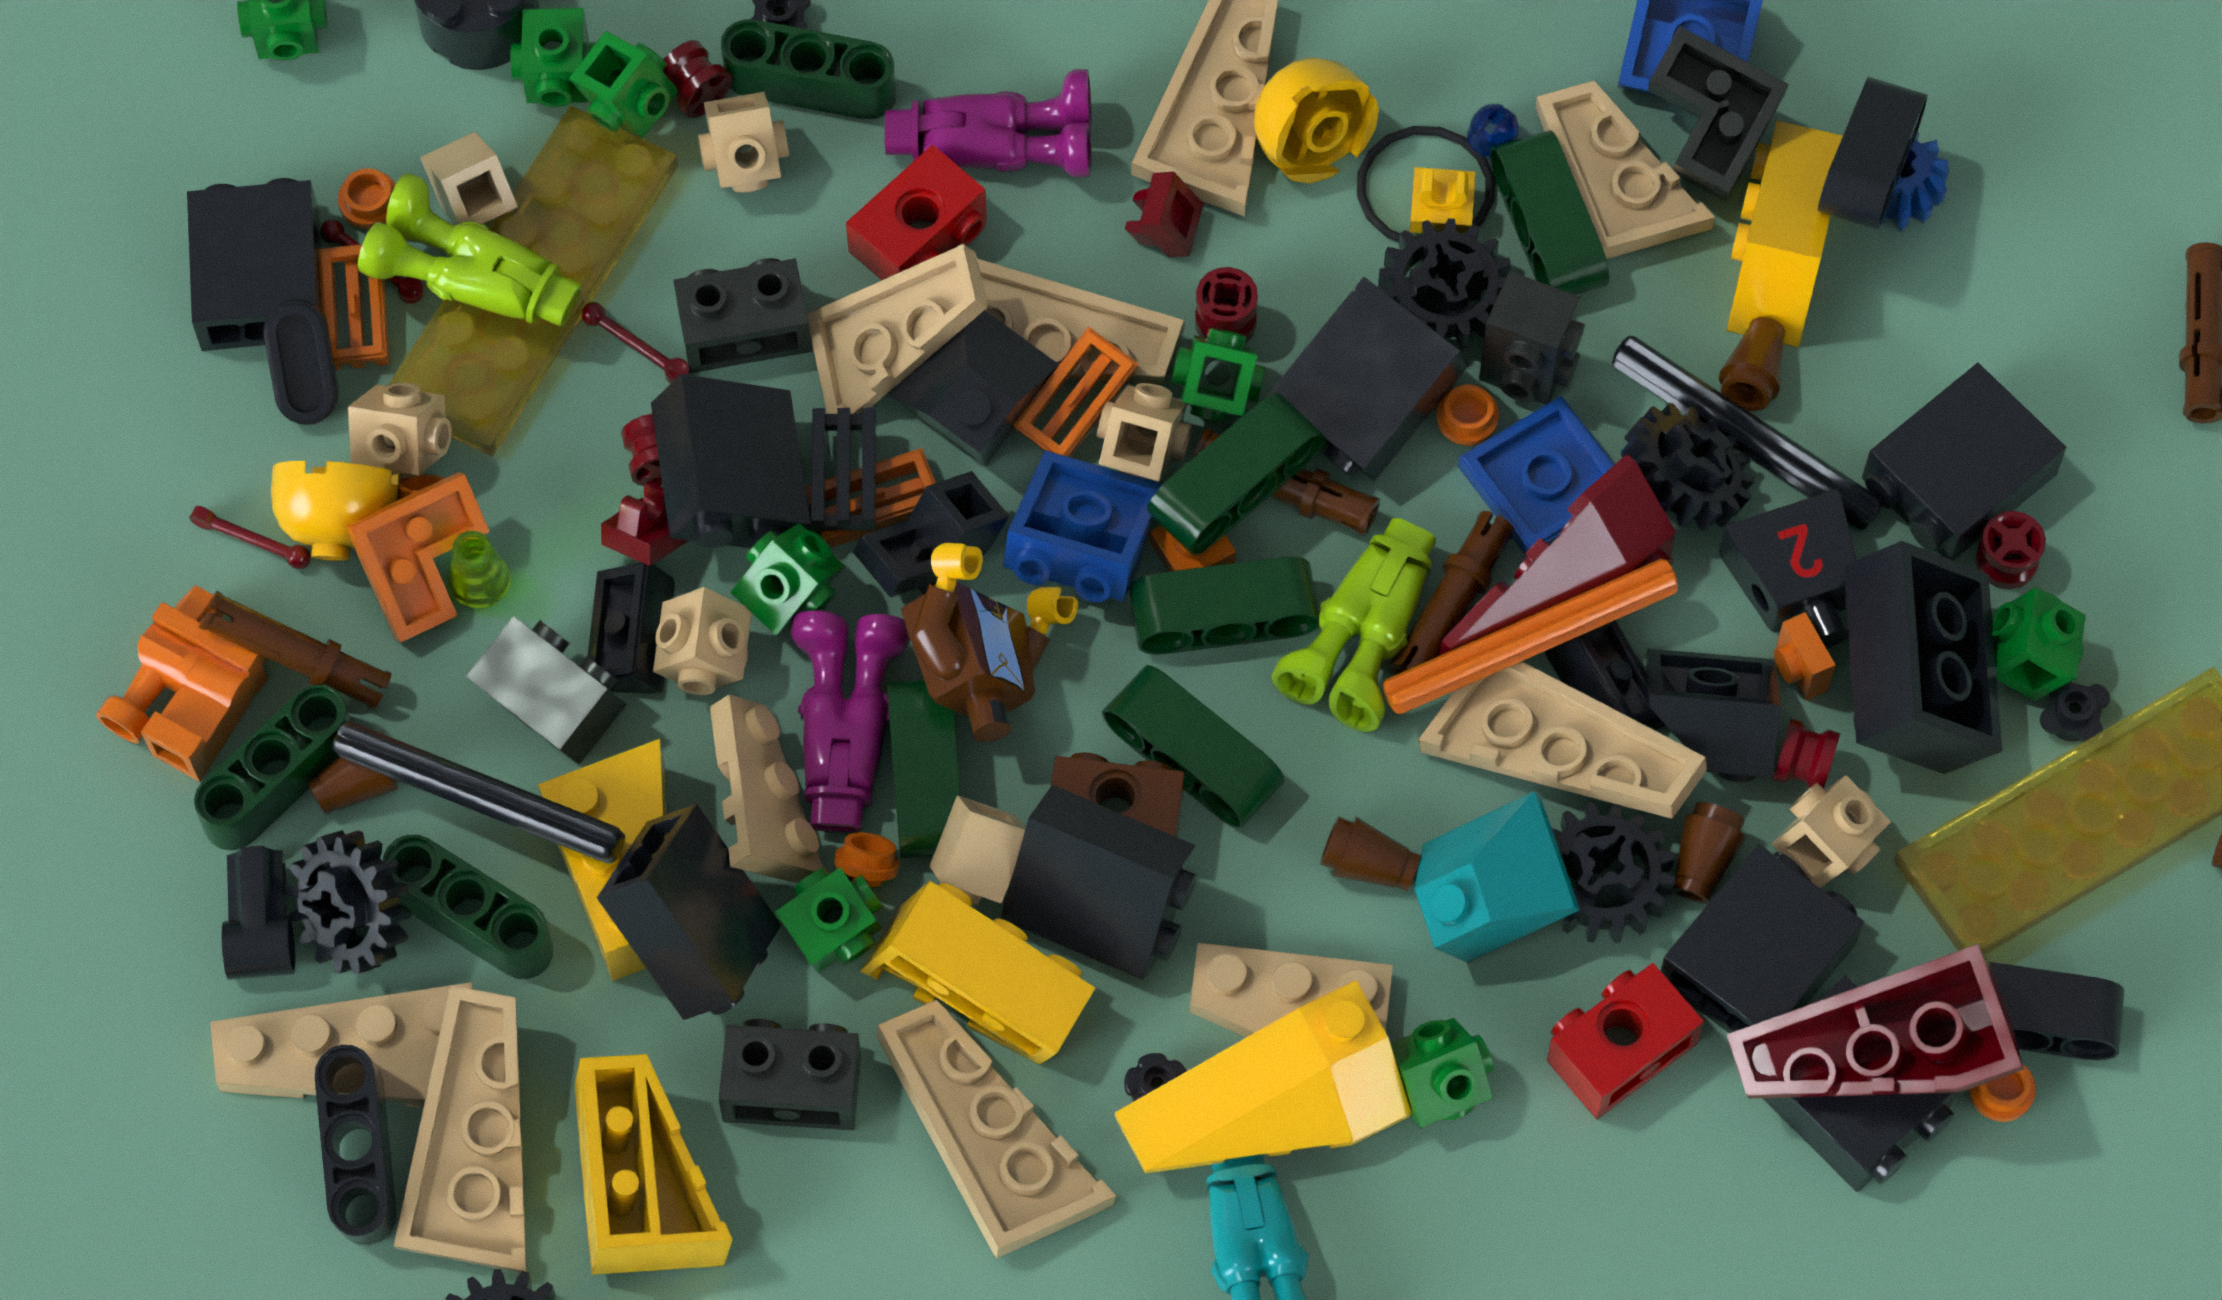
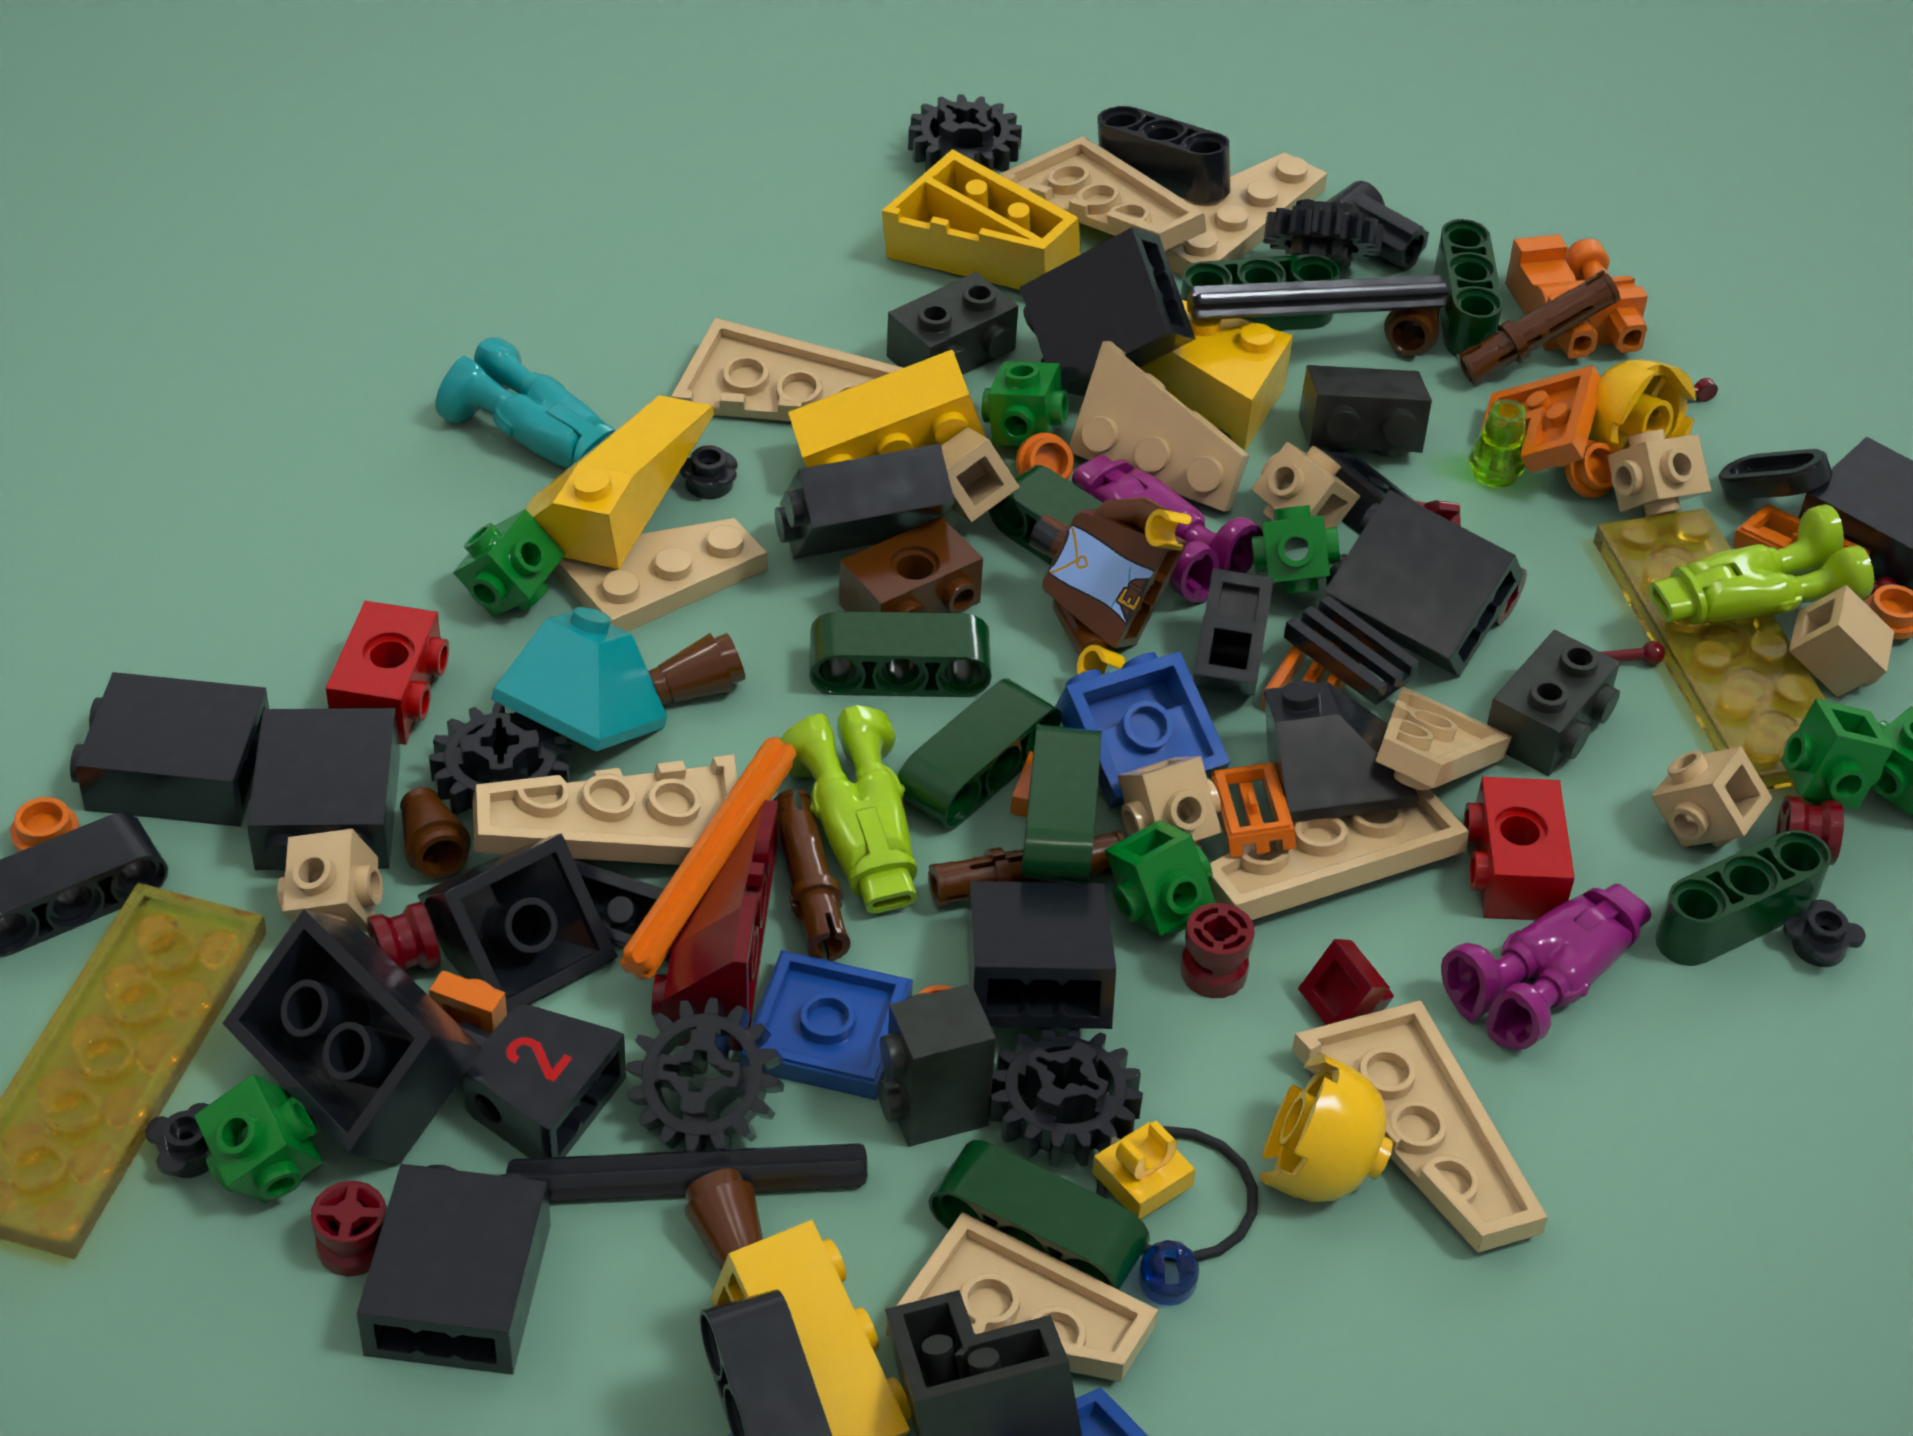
camera: 135 degrees right, 20 degrees down
(1903, 1034) = (136, 746): dark red wedge -> none

